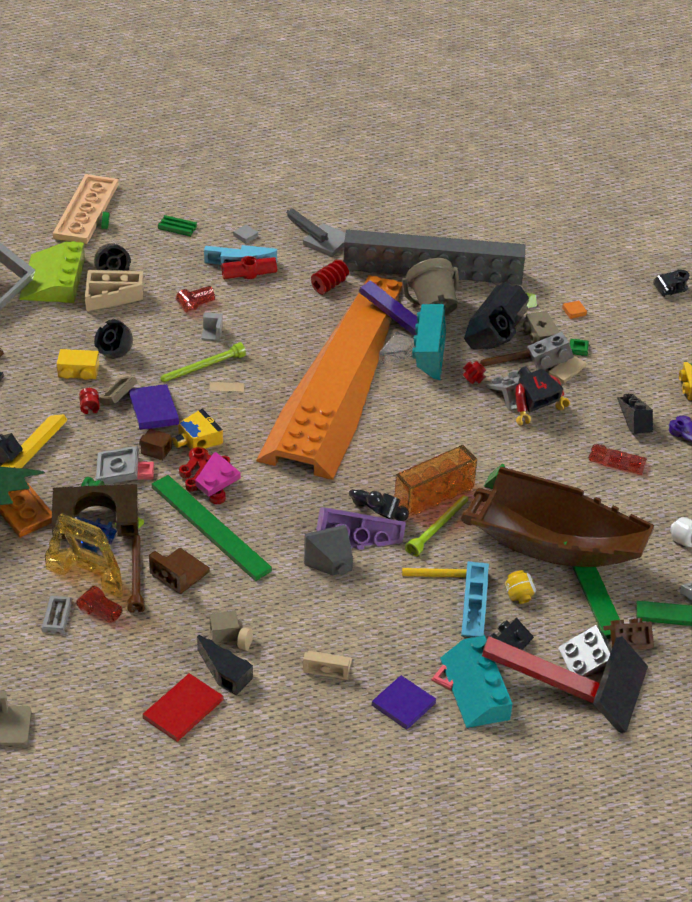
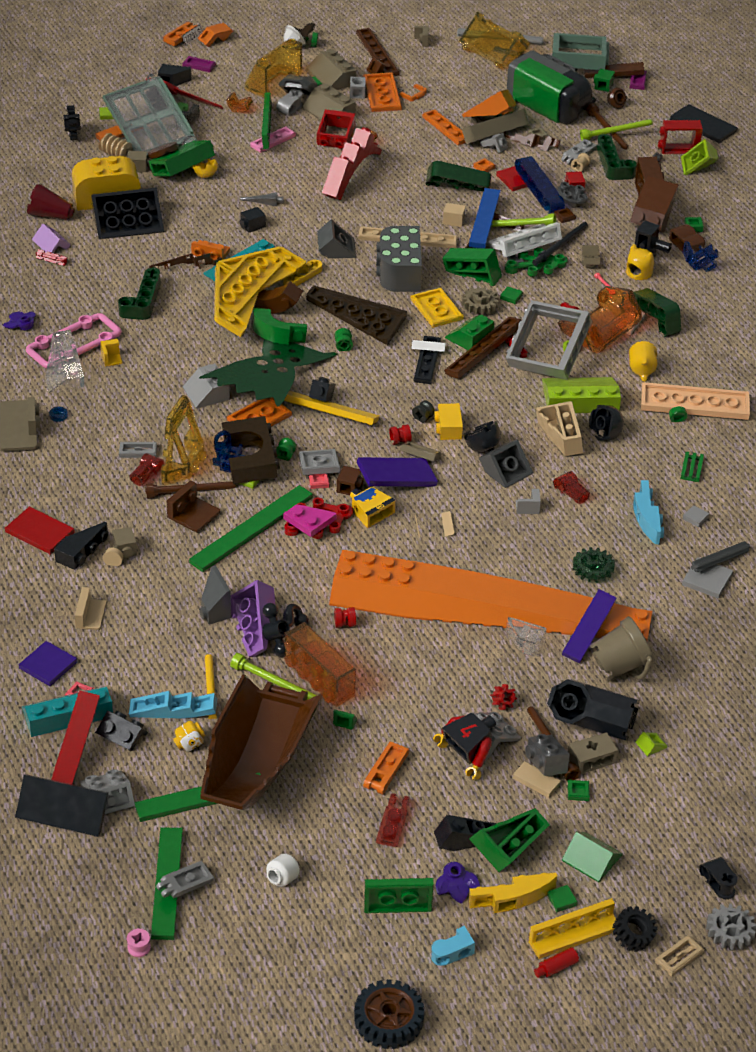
camera: 85 degrees right, 0 degrees up
(23, 225) = (643, 359): none -> yellow piece
(55, 381) = (423, 411): none -> pearl dark grey wheel
(151, 334) = (506, 463): none -> dark grey slope
(237, 350) = (496, 521): lime piece -> none
(249, 267) = (631, 519): red piece -> none
(307, 298) = (593, 564): none -> clear green gear
(329, 276) = (631, 578): red piece -> none
(359, 464) = (345, 617): none -> red wheel
(400, 252) = (686, 656): dark grey brick -> none
(430, 339) = (537, 655): teal slope -> none
(557, 456) = (386, 767): none -> orange plate
(574, 309) = (646, 787): orange tile -> none
(636, 633) = (128, 815): reddish brown bracket -> none
(646, 383) = (509, 838): none -> green wedge
(653, 347) = (590, 856): none -> slope

